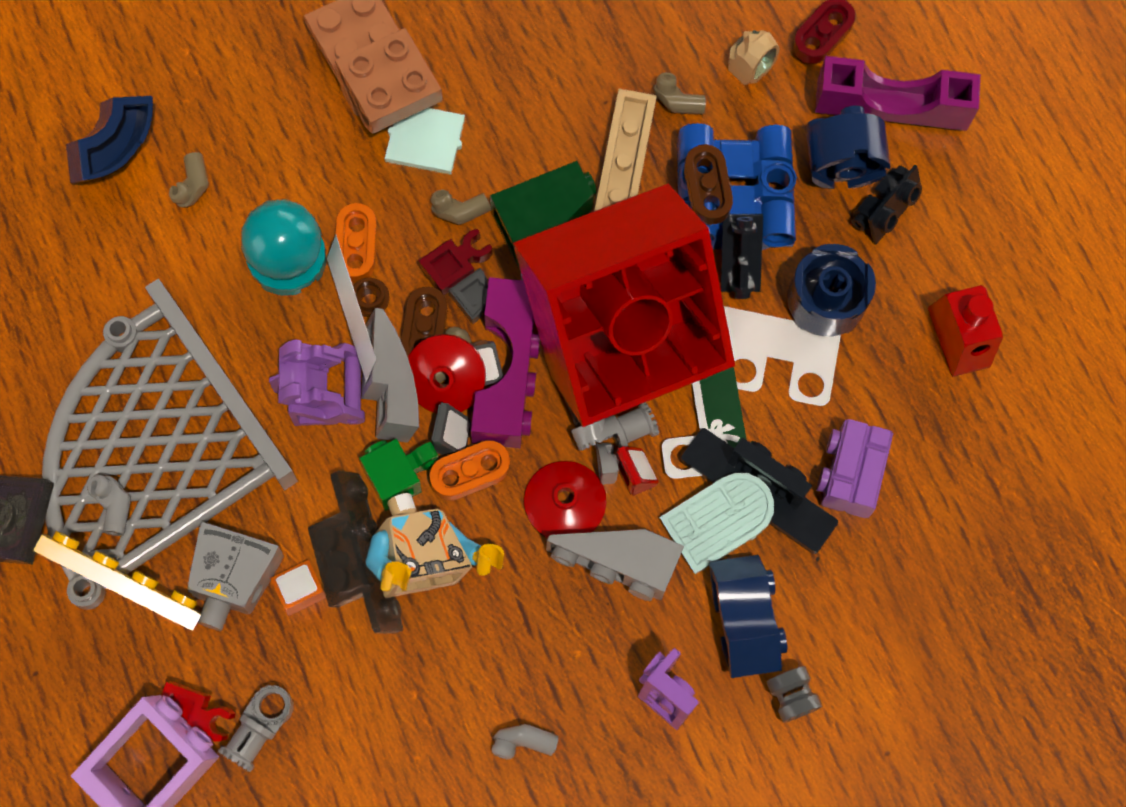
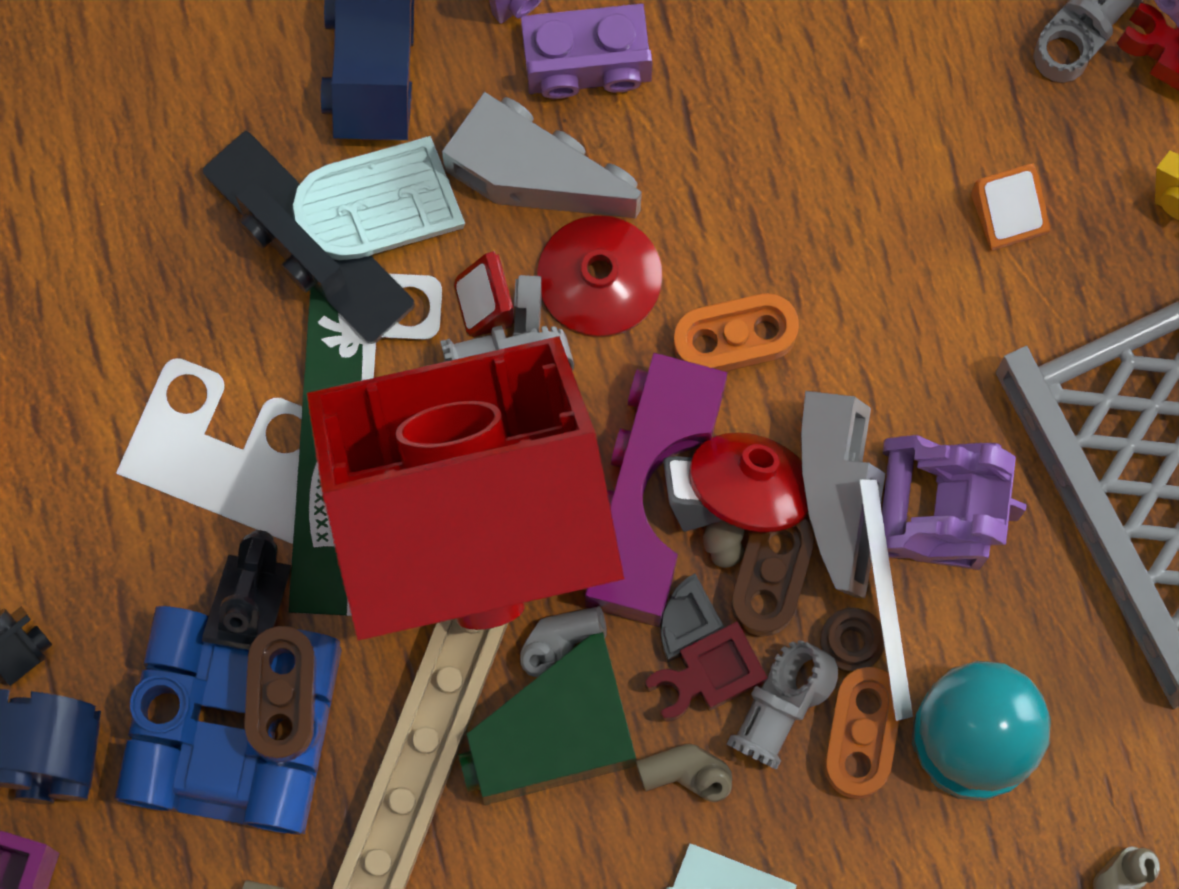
camera: 165 degrees left, 5 degrees up
(230, 573) = (1108, 238): light grey torso -> none
(341, 554) = (926, 235): clear smoke bracket -> none
(393, 471) = (849, 343): green brick -> none
(415, 238) = (781, 703): none -> light grey connector
(424, 551) = (827, 209): torso -> none
(450, 430) = (755, 398): slope -> none
(601, 648) = (586, 50): none -> medium lavender bracket
(836, 310) = (104, 483): dark blue brick -> none
(855, 468) = (157, 239): medium lavender brick -> none

